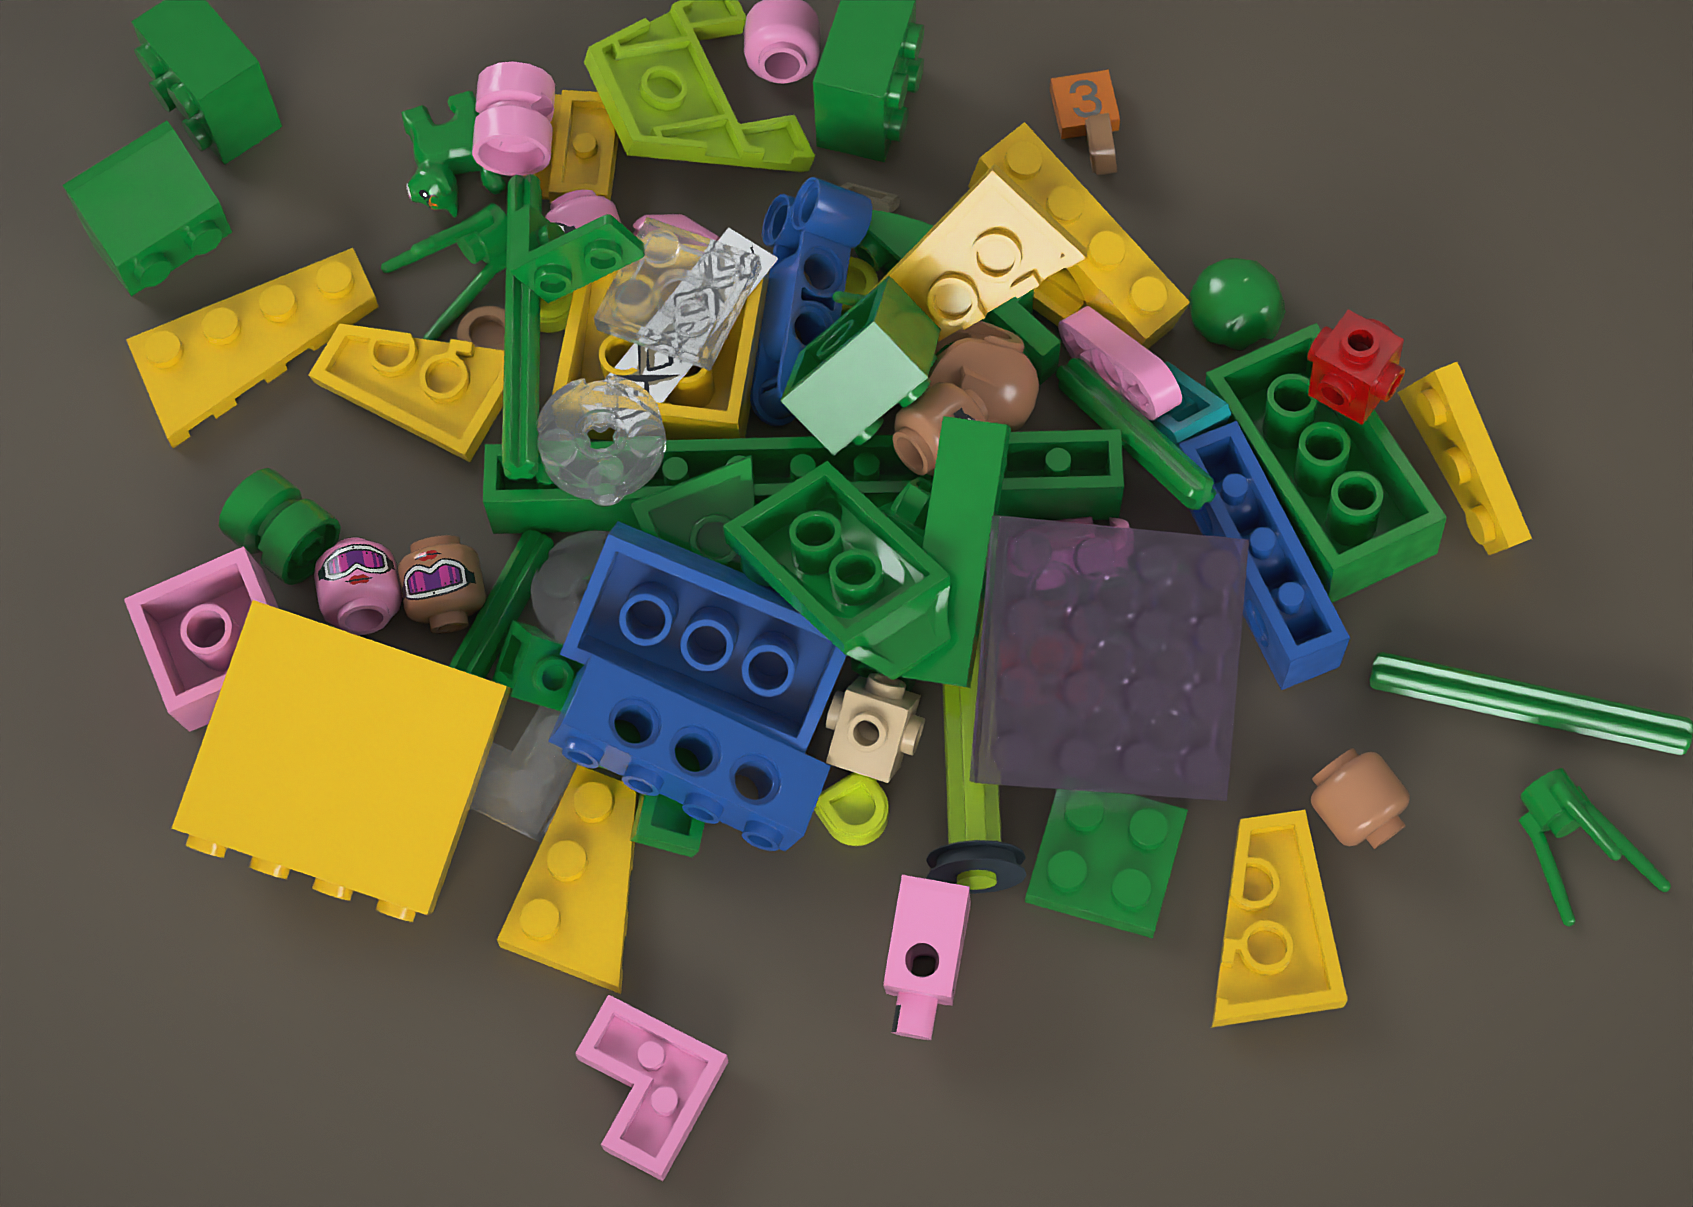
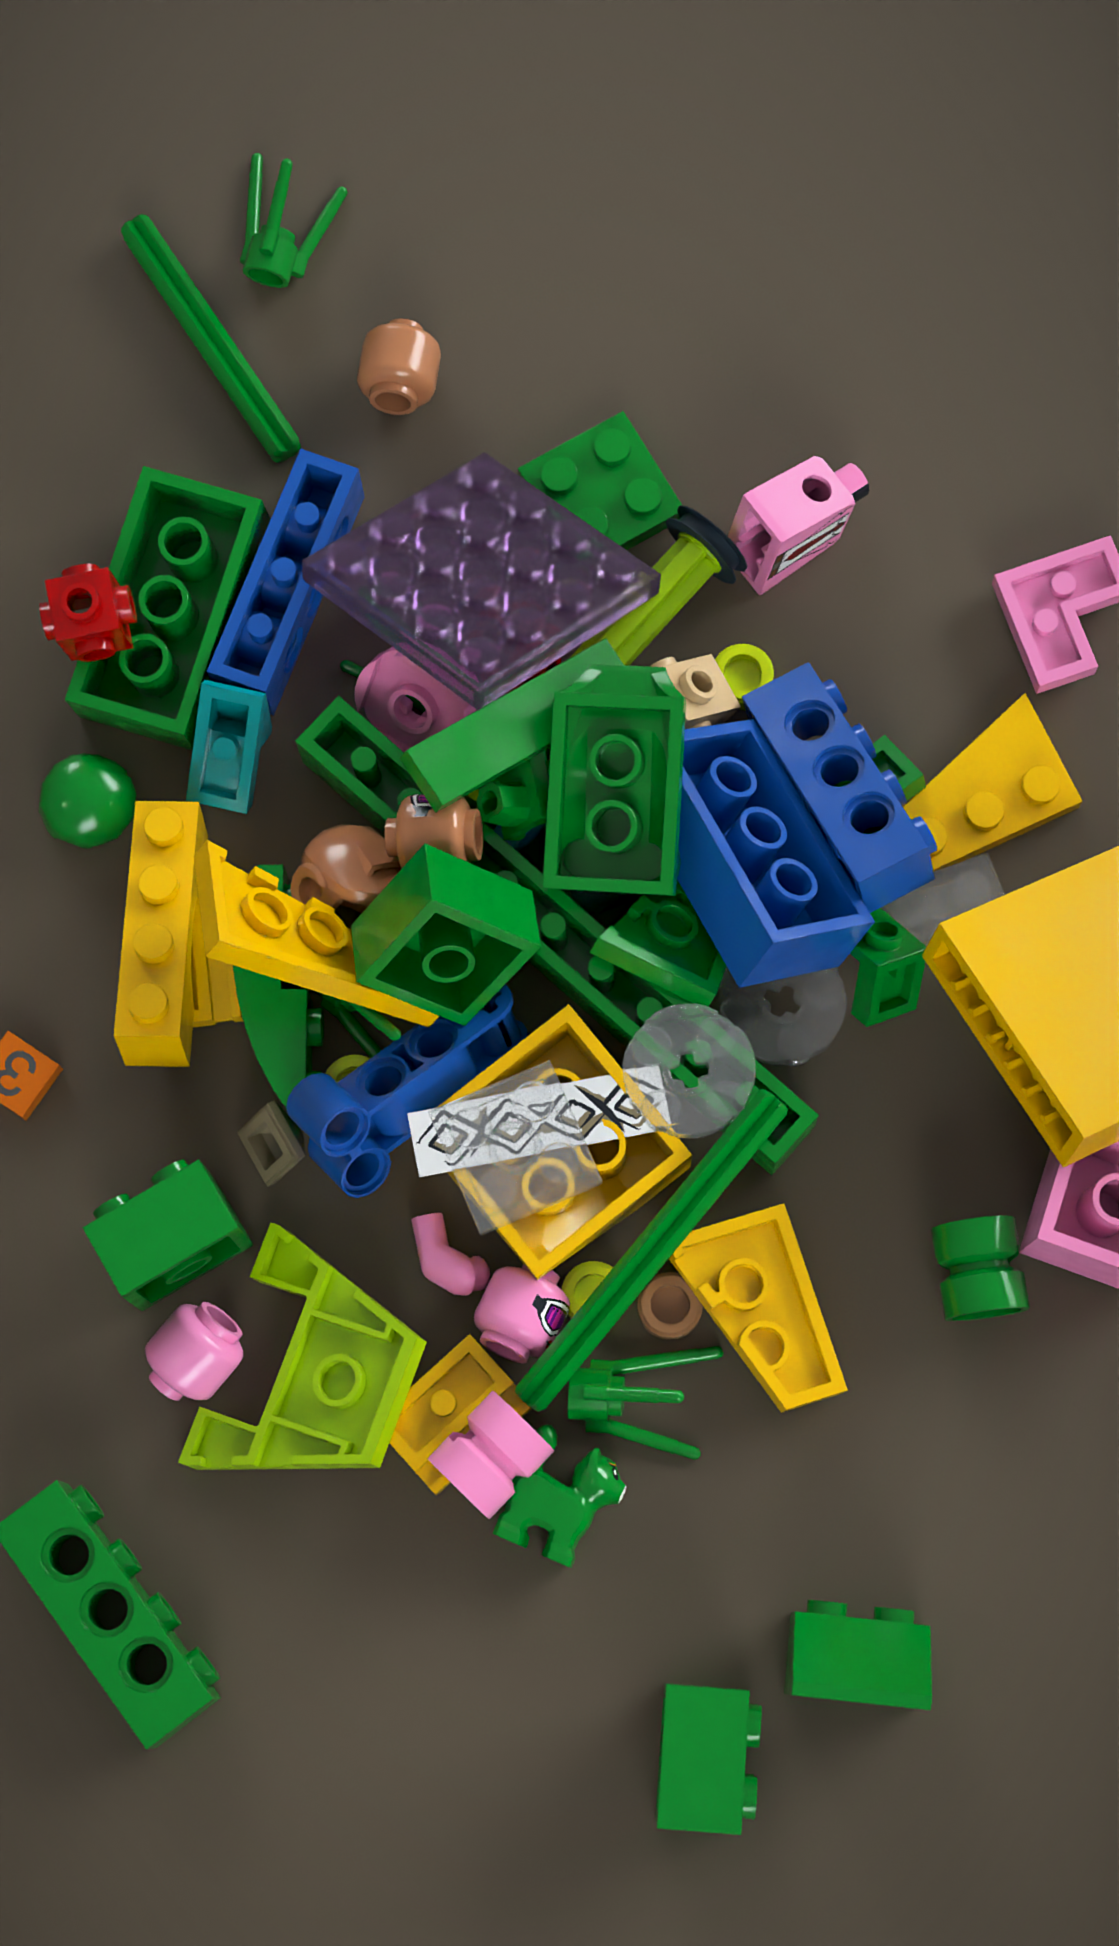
camera: 135 degrees left, 10 degrees up
(221, 351) = (875, 1486): yellow wing -> none
(358, 586) = (959, 1164): bright pink head -> none
(441, 583) = (893, 1107): nougat head -> none
(502, 605) = (874, 1051): green axle -> none
(561, 262) = (596, 1281): green bracket -> none
(1101, 144) = (46, 1019): medium nougat tile -> none
(1121, 362) = (236, 789): bright pink beam -> none
(1138, 435) = (279, 746): green axle -> none
(1277, 927) = (539, 343): yellow wing -> none
(1463, 450) = (65, 519): yellow wing -> none

